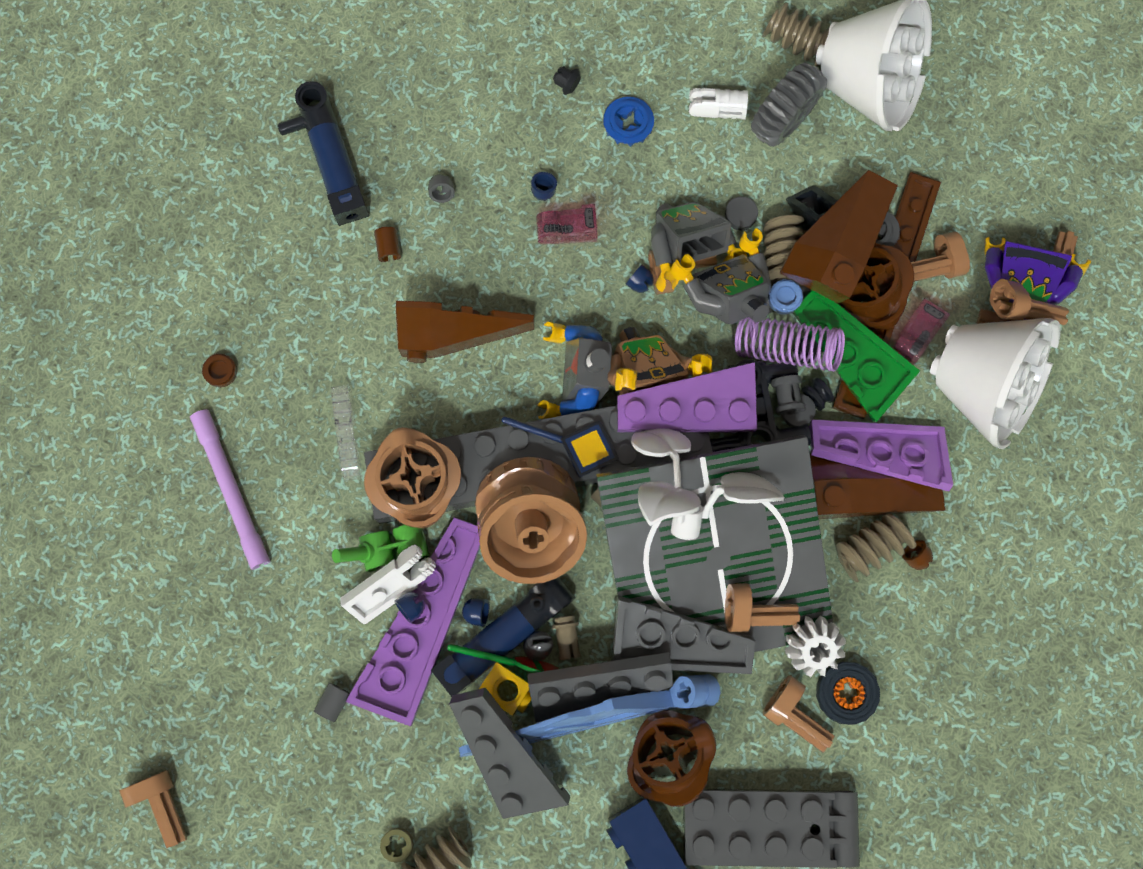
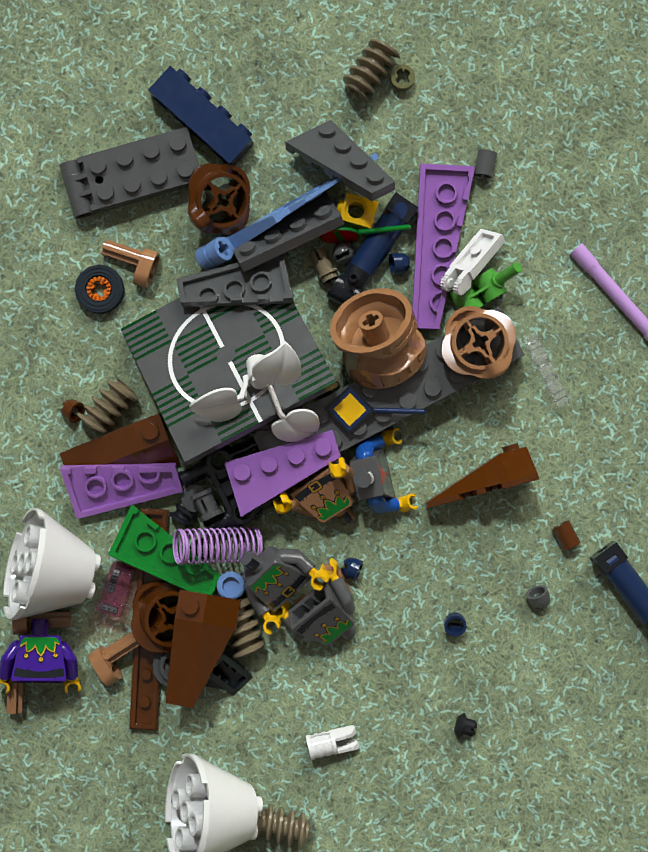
camera: 170 degrees right, 10 degrees up
(157, 792) = (592, 61): medium nougat piece -> none
(408, 607) = (451, 248): dark blue hinge -> none
(567, 226) = (424, 595): clear pink leg -> none
(622, 109) = (410, 714): blue gear -> none
(741, 213) = (286, 651): dark grey tile -> none
(741, 613) = (195, 318): medium nougat piece -> none
(788, 104) = (273, 751): dark grey gear -> none
(821, 654) = (134, 314): white gear -> none
(1023, 305) = (48, 624): medium nougat piece -> none

